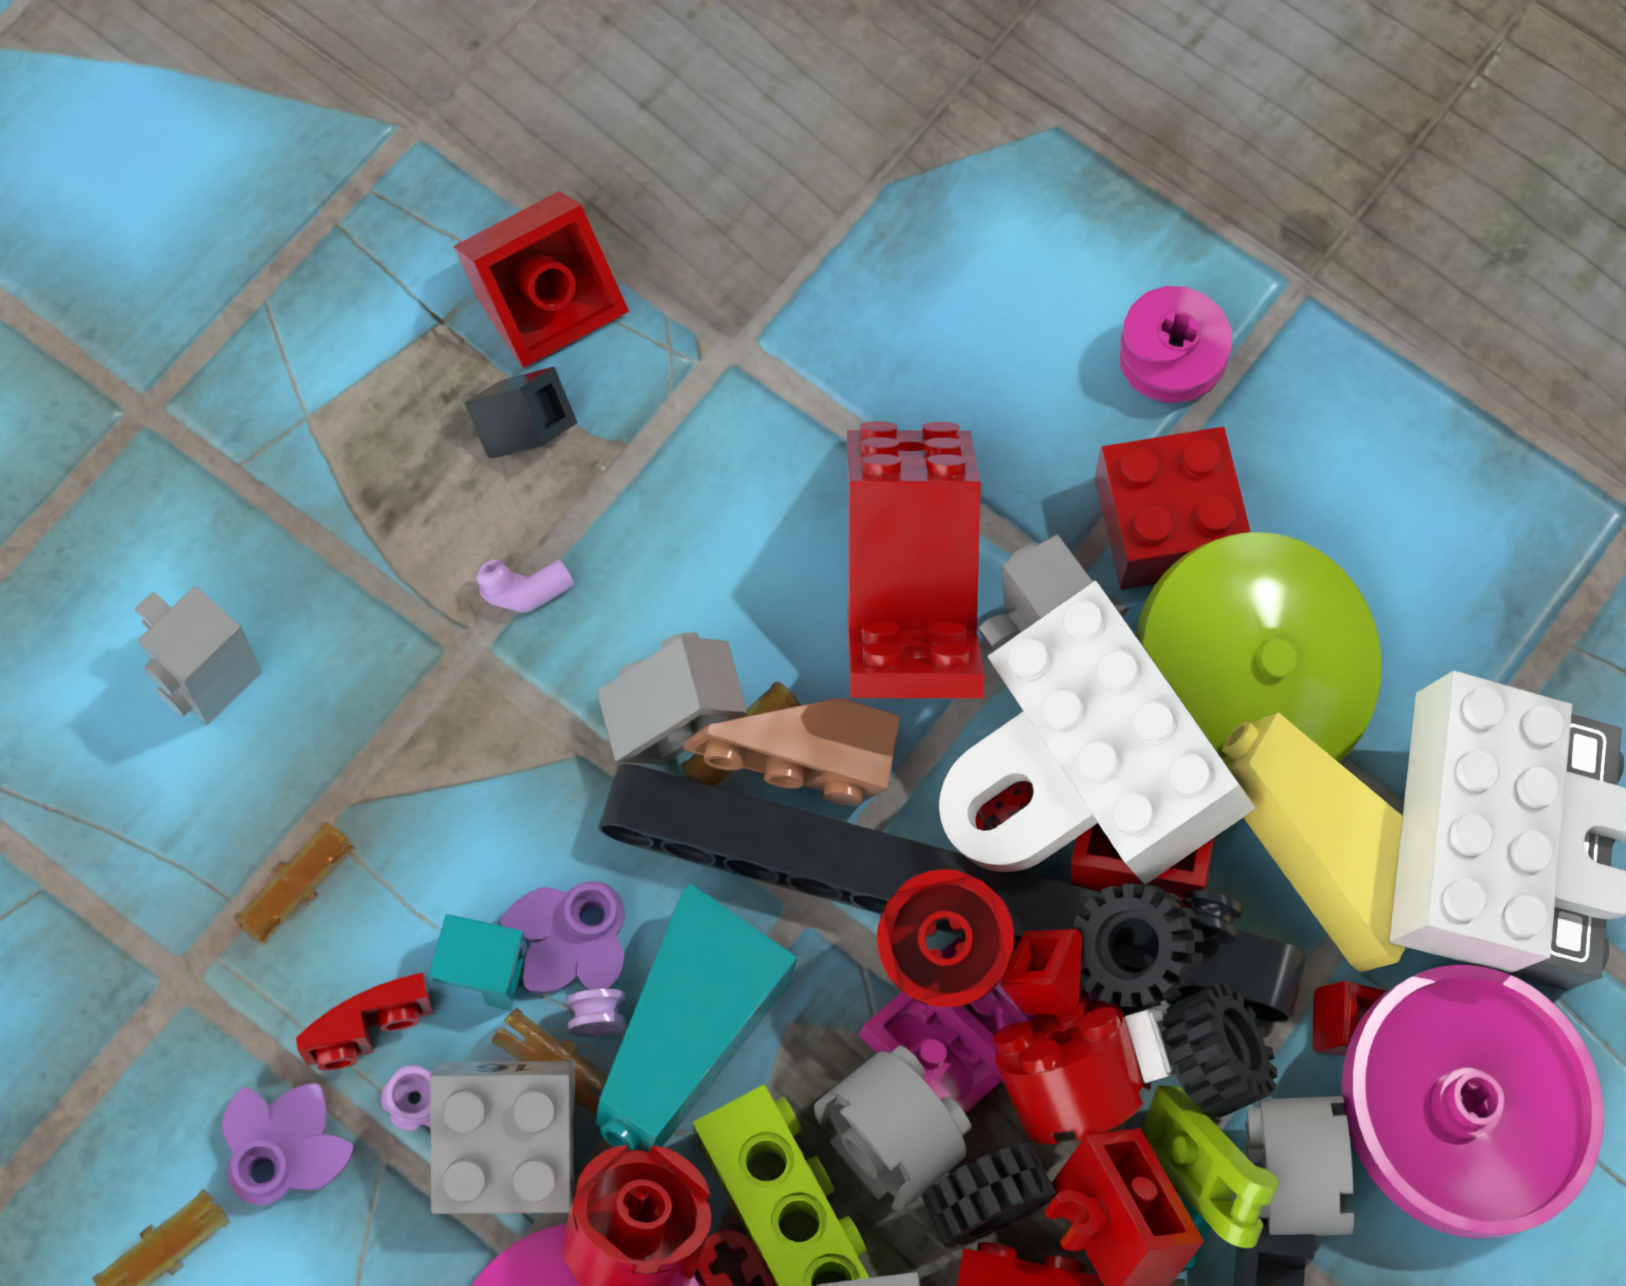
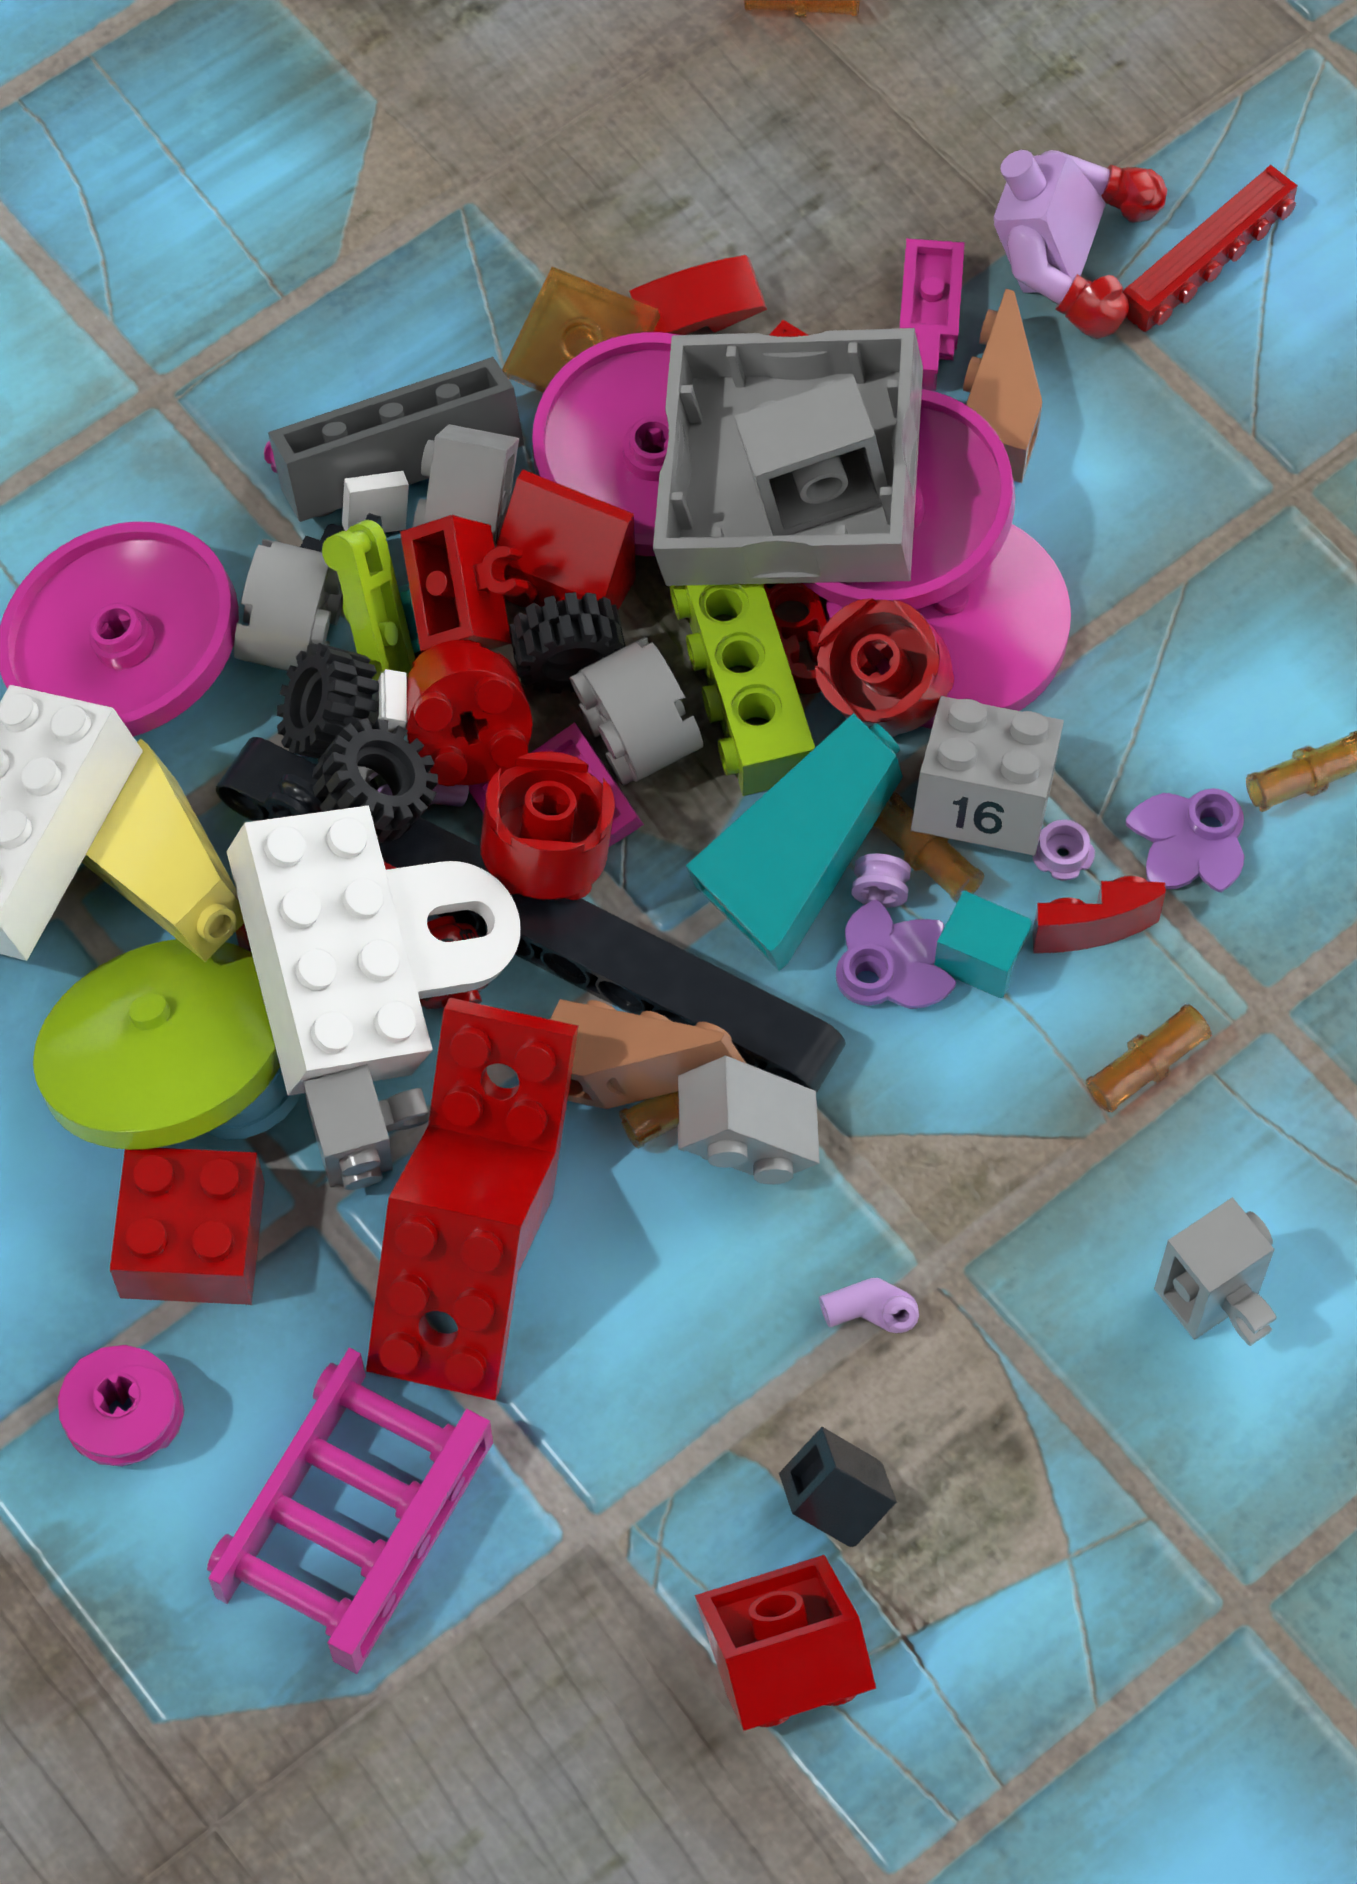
camera: 165 degrees left, 5 degrees down
(901, 264) = (385, 1565): none -> dark pink fence
(1045, 972) = (460, 783): red slope -> none
(1337, 1014) = (195, 741): red slope -> none

